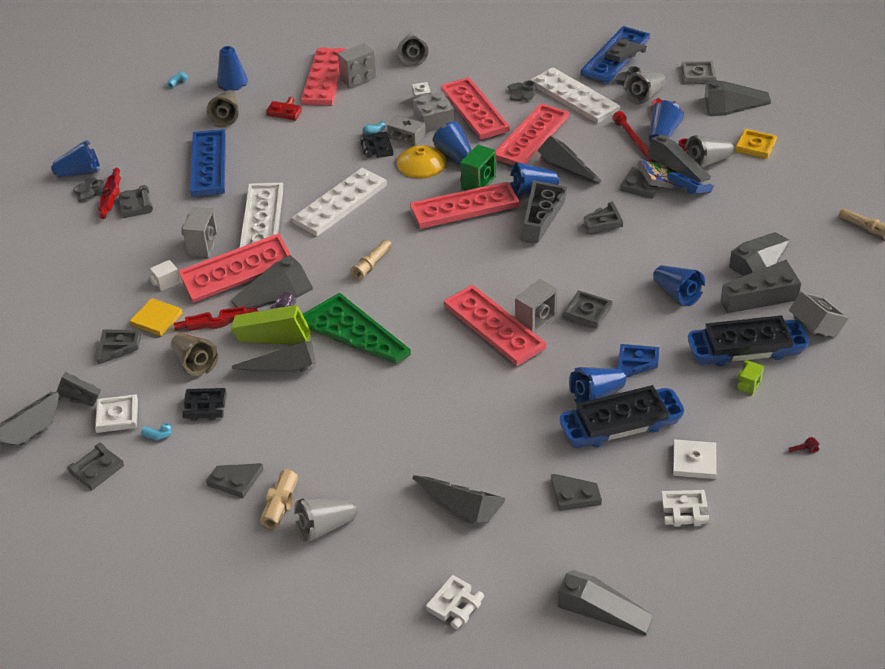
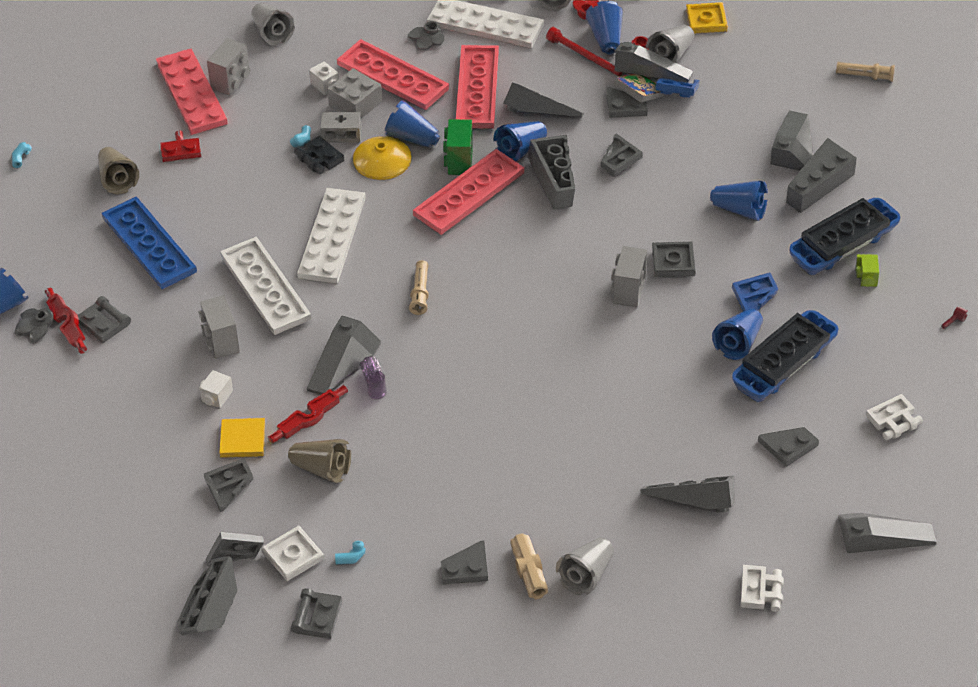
camera: 30 degrees left, 5 degrees up
(204, 398) = (372, 500): black plate -> none
(230, 70) = (84, 123): blue cone -> none
(232, 268) = (288, 352): coral plate -> none
(272, 326) = (380, 399): lime slope -> none
(290, 358) = (426, 423): dark grey wedge -> none
(350, 325) = (447, 365): green wing -> none
(495, 325) = (596, 309): coral plate -> none
(694, 459) = (870, 368): white plate -> none
(818, 314) = (890, 184): light grey brick -> none

